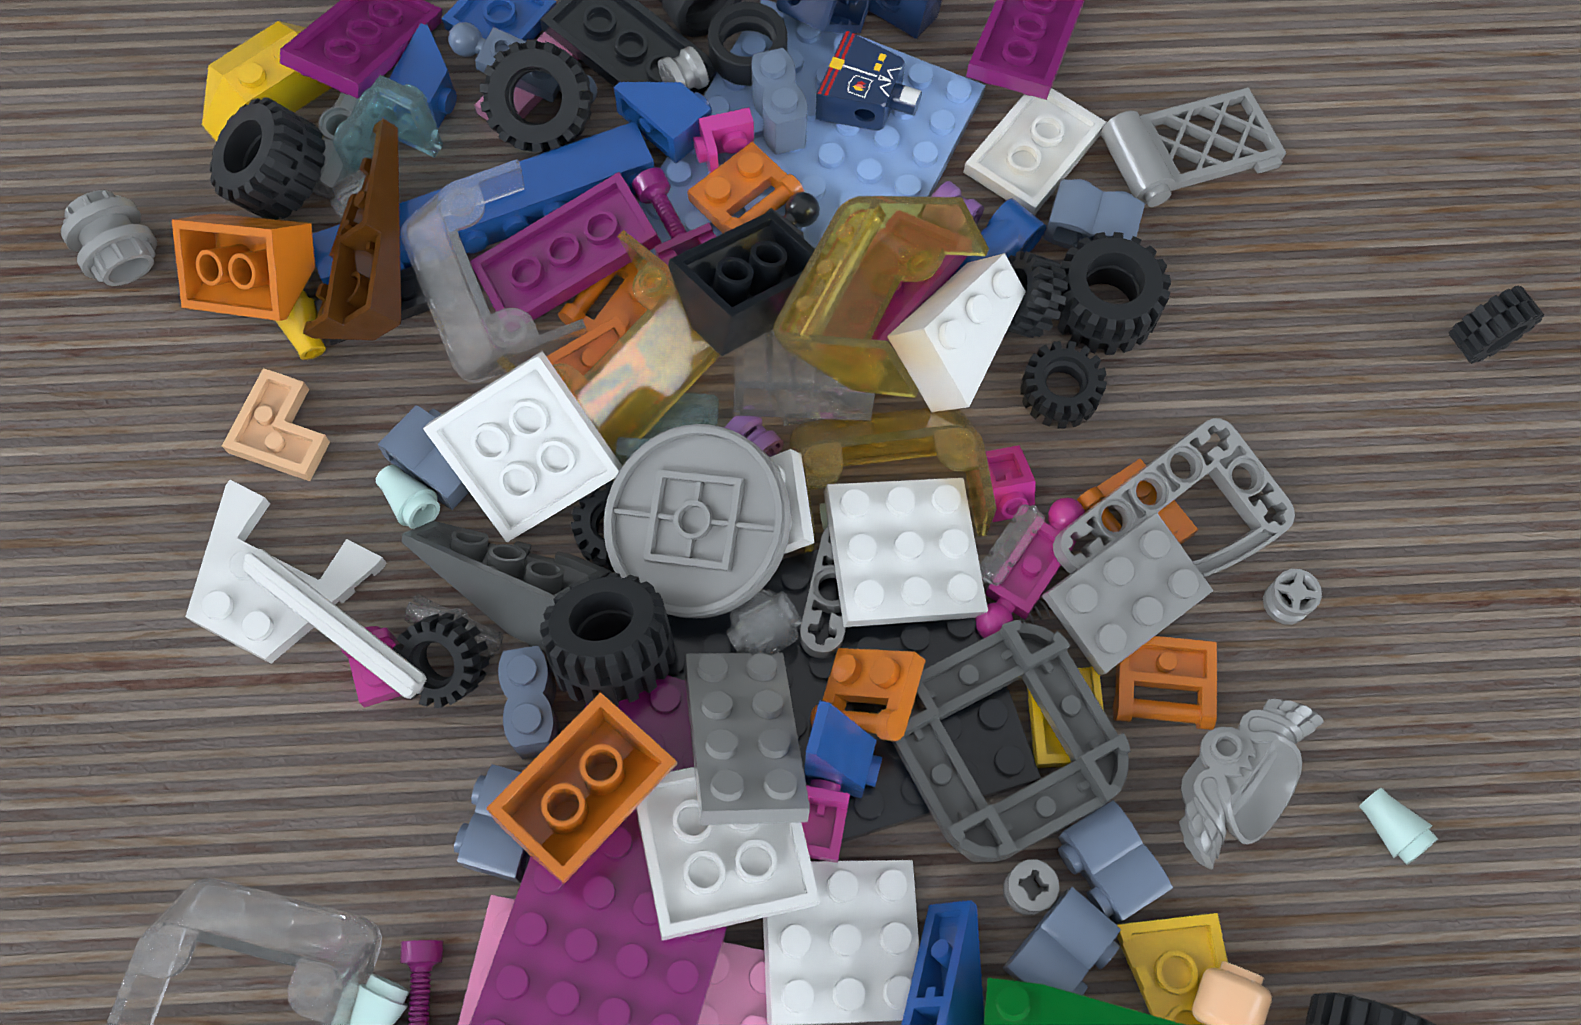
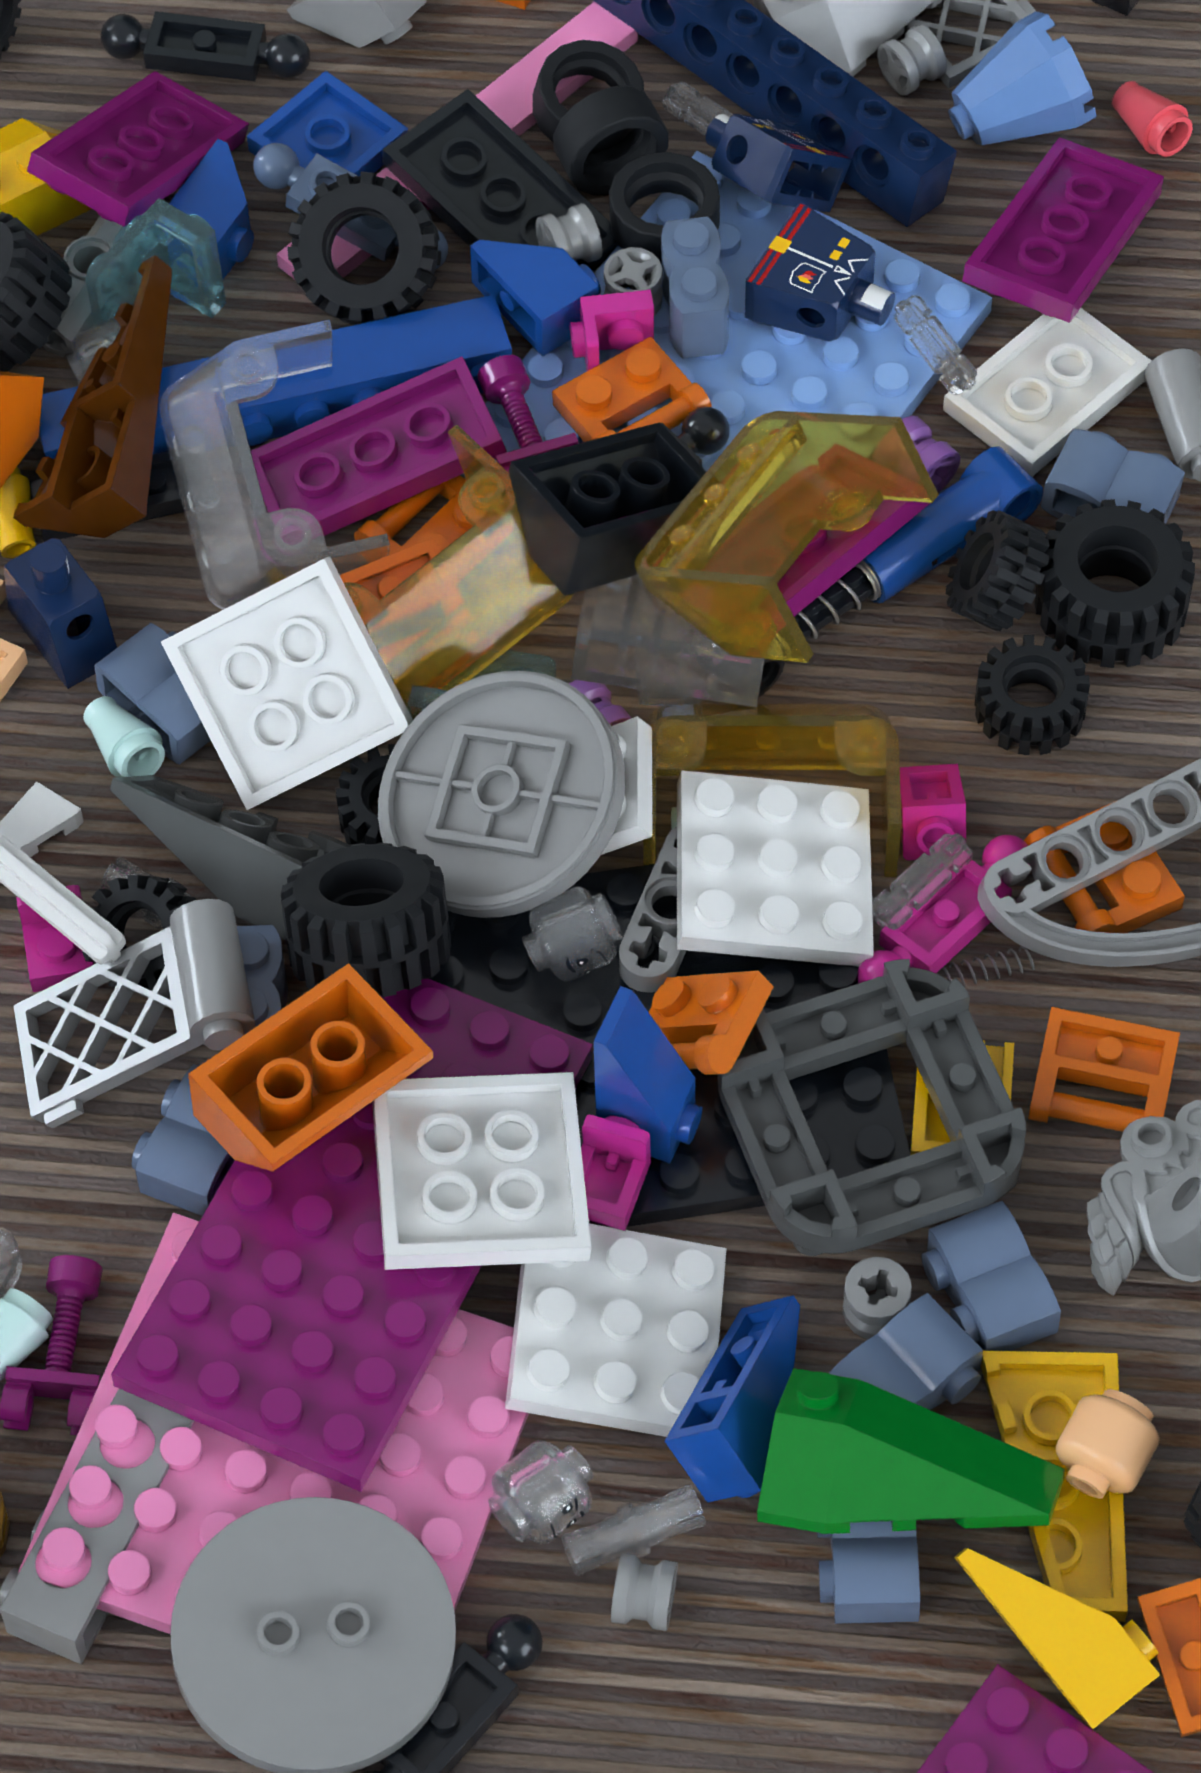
camera: 10 degrees right, 10 degrees down
(340, 395) = (48, 592): none -> dark blue torso
(486, 709) = (208, 1003): none -> light grey piece
(733, 91) = (636, 270): none -> light grey wheel
(744, 740) = (524, 1048): light grey plate -> none
(954, 126) = (935, 345): none -> clear axle
(958, 331) = (888, 602): white wedge -> none
(1127, 593) = (1064, 953): light grey plate -> none

